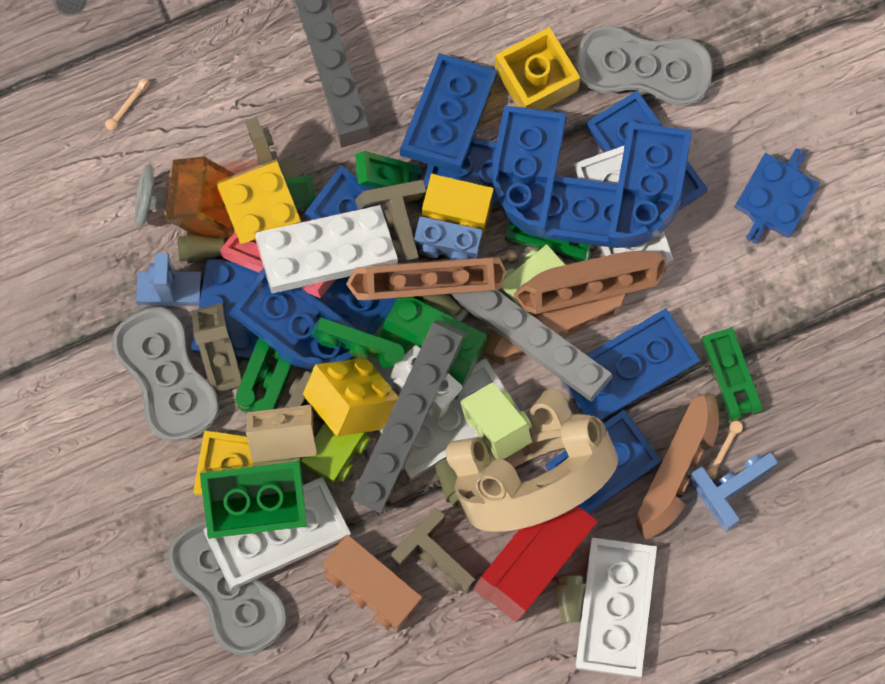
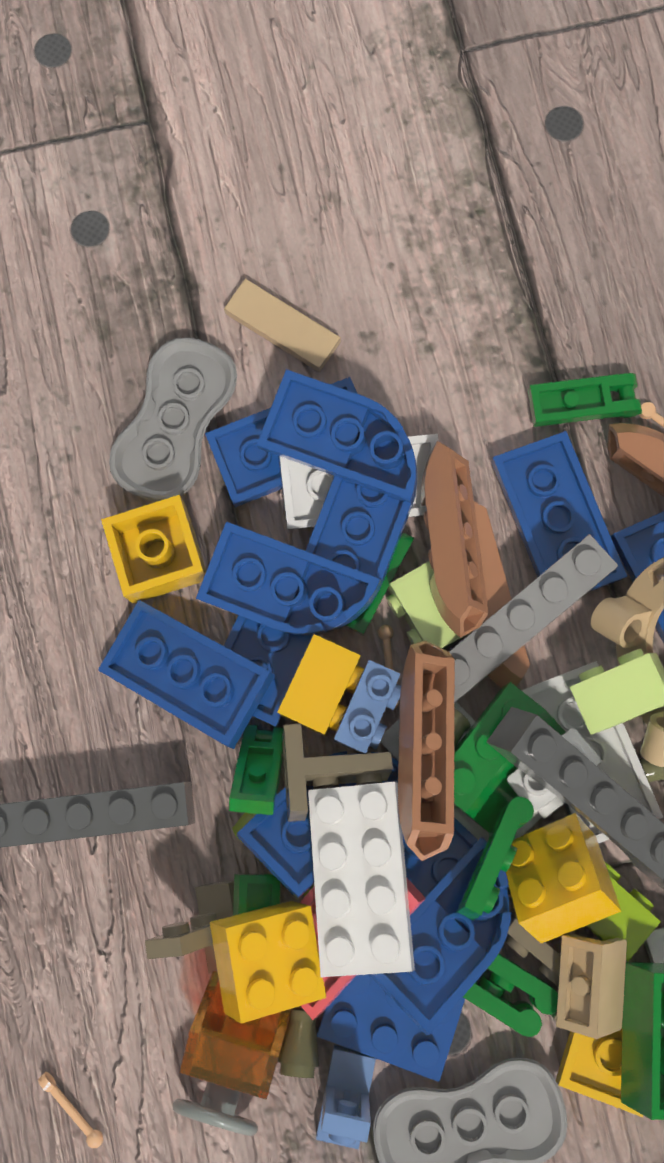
camera: 75 degrees left, 5 degrees up
(216, 347) = (446, 1054): dark tan bracket -> none
(741, 132) = (282, 325): none -> tan tile
(776, 195) = (370, 302): blue plate -> none

